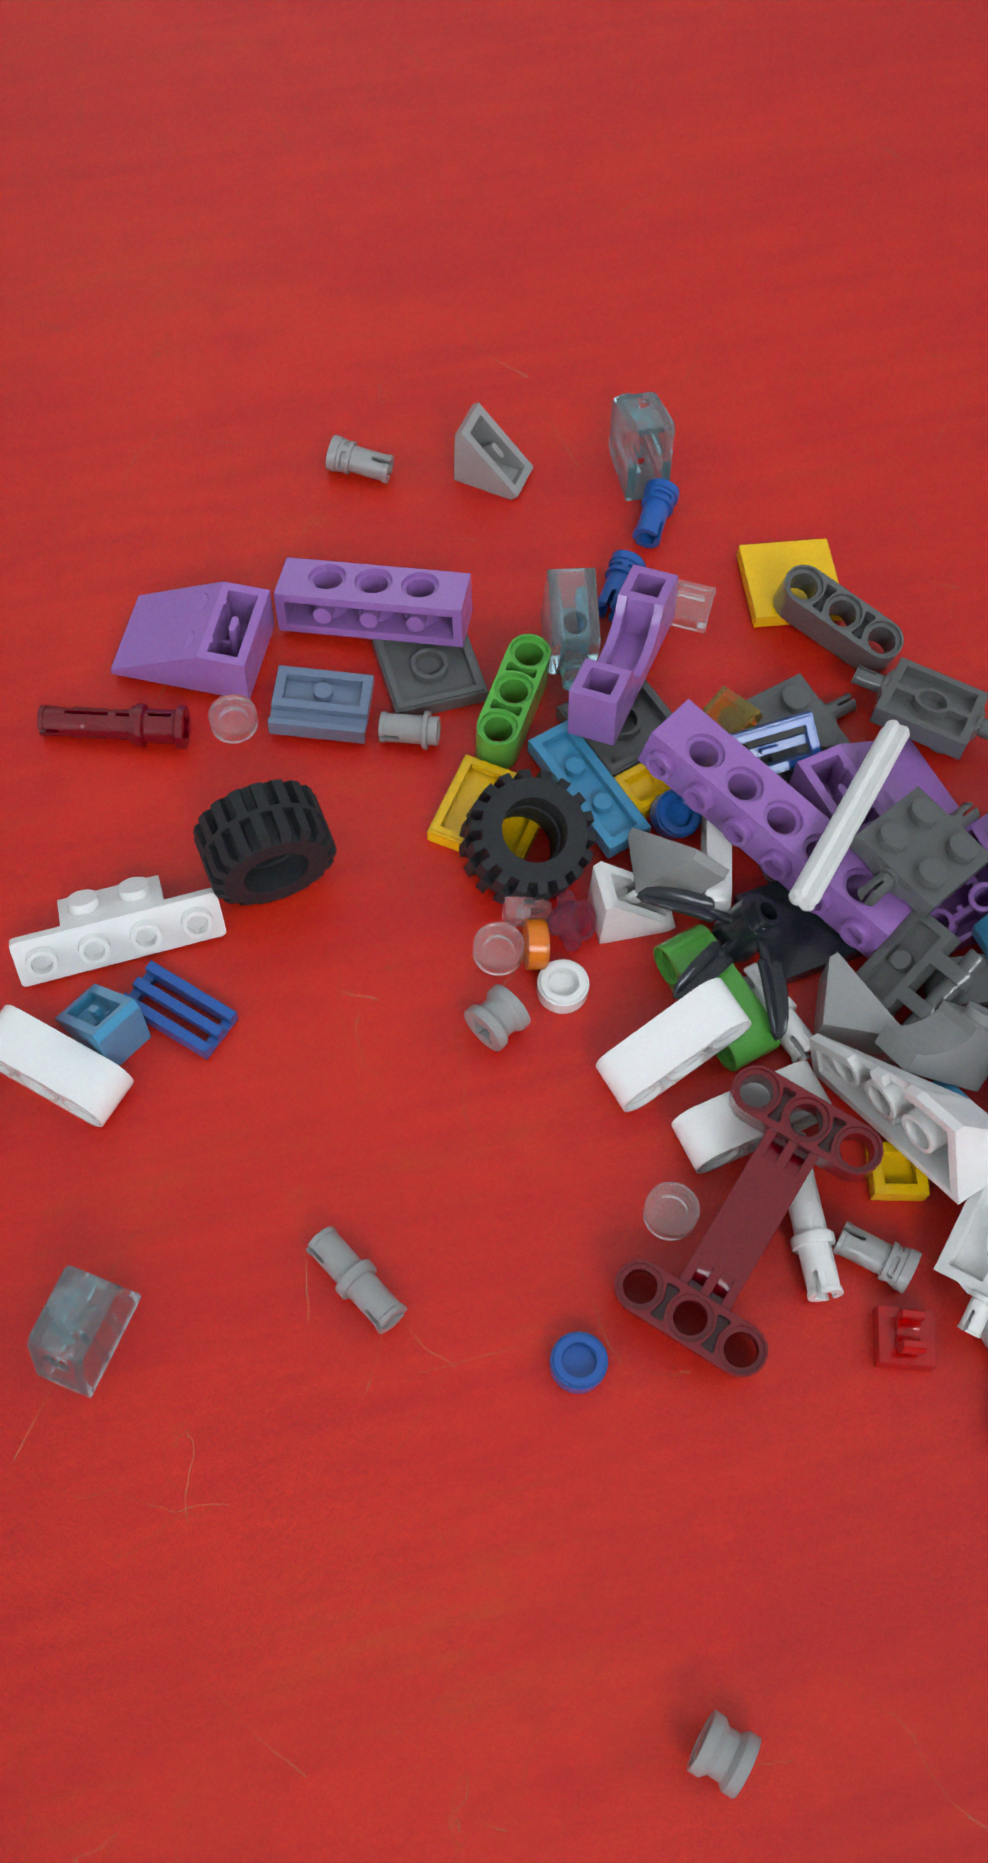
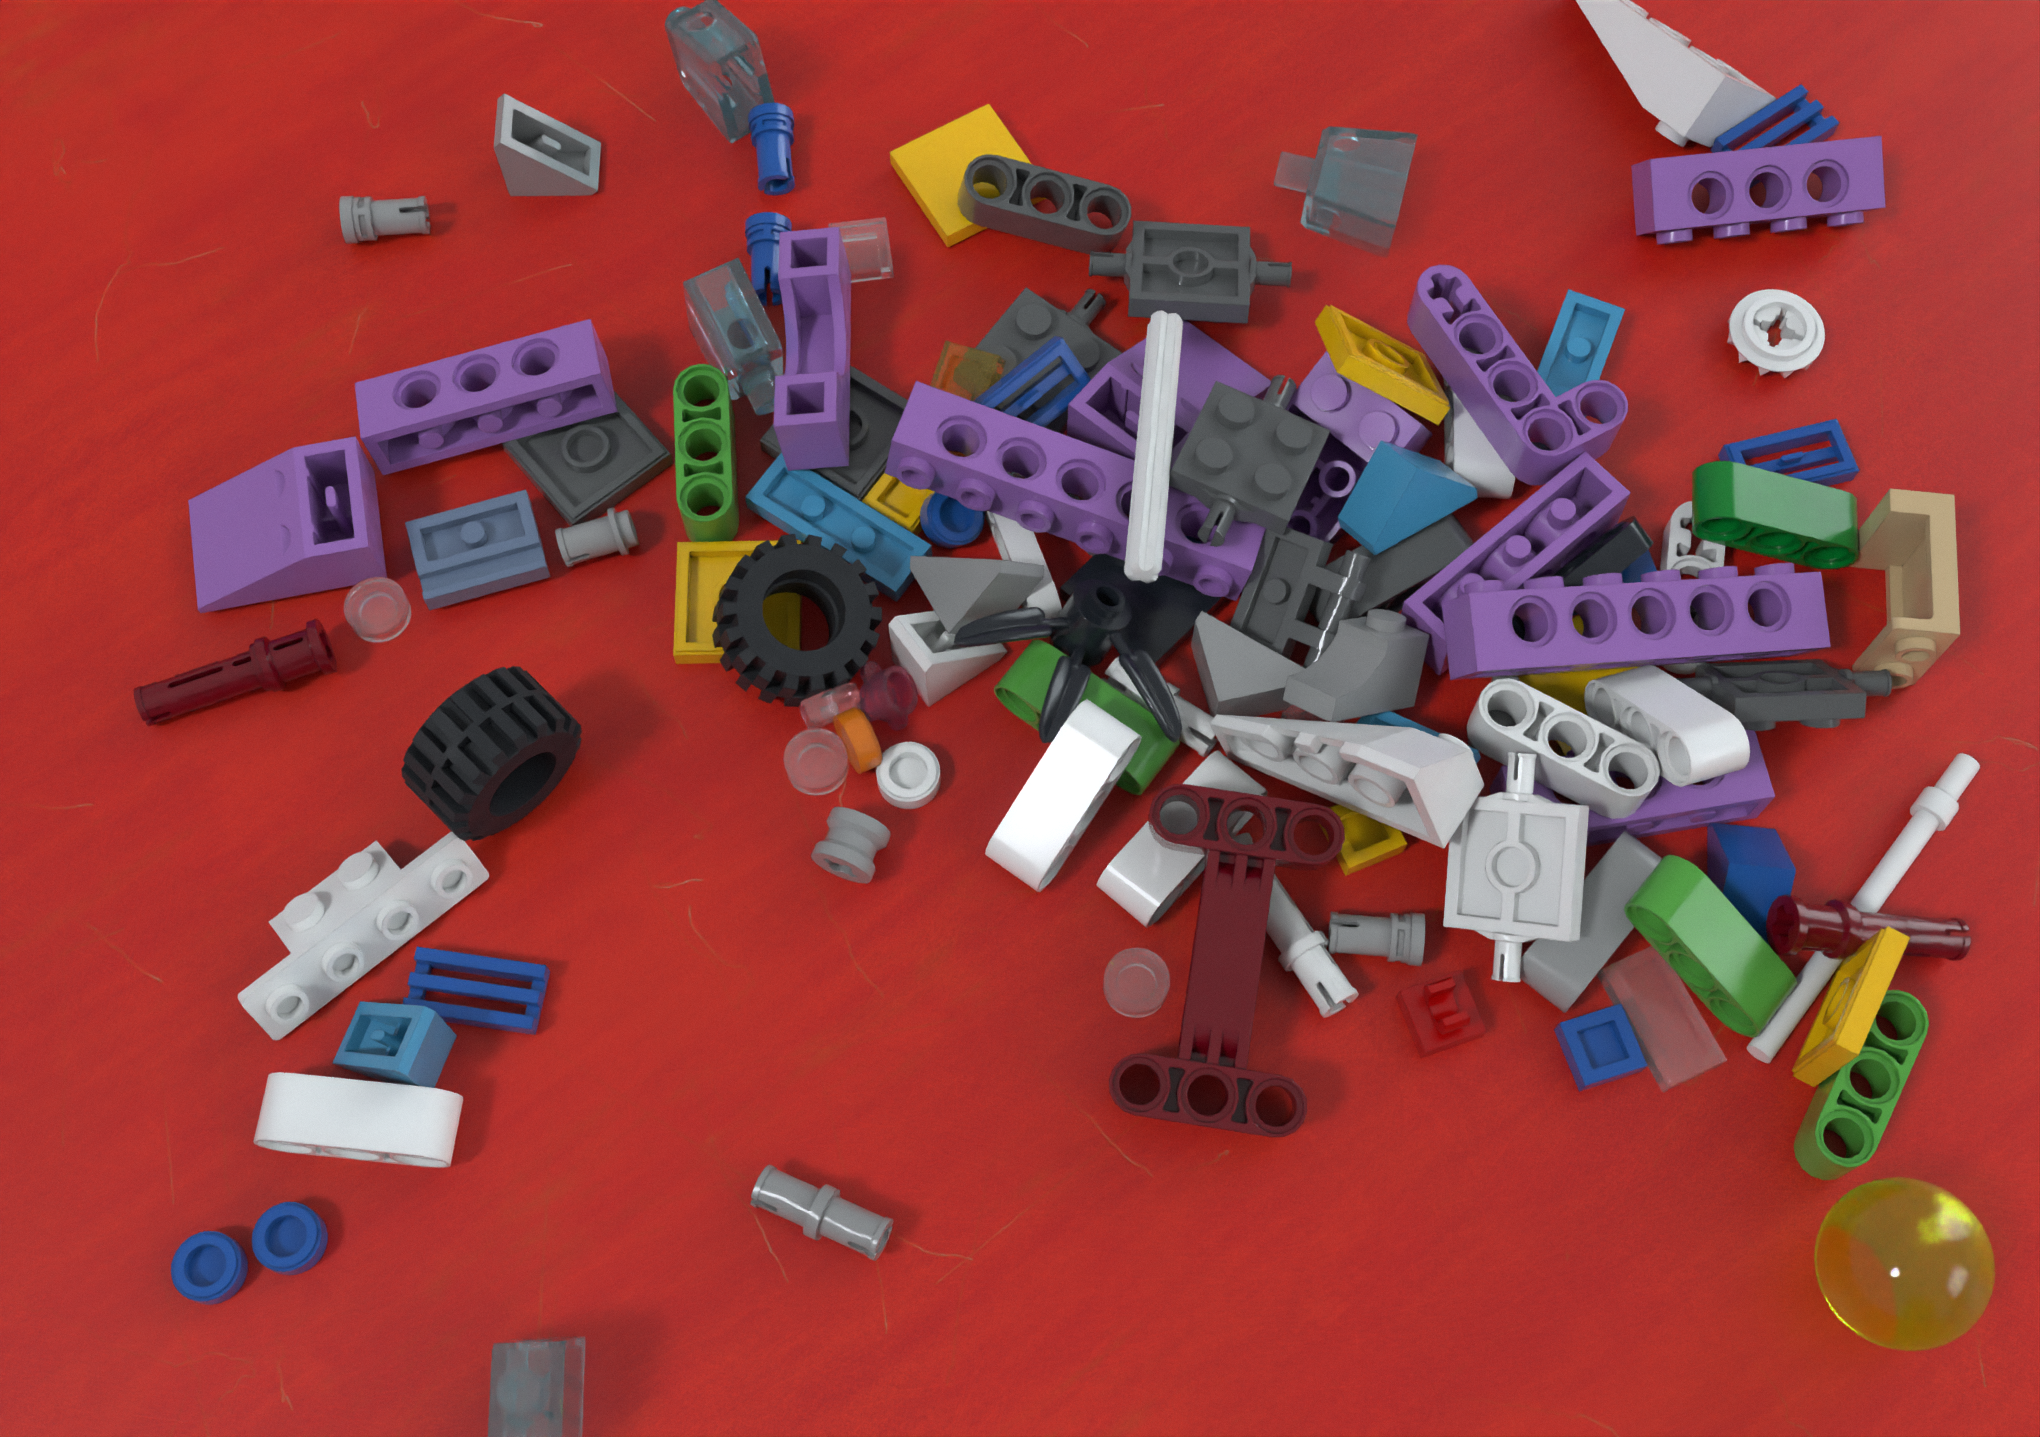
camera: 20 degrees left, 5 degrees up
(578, 1362) = (1105, 1194): blue tile -> none

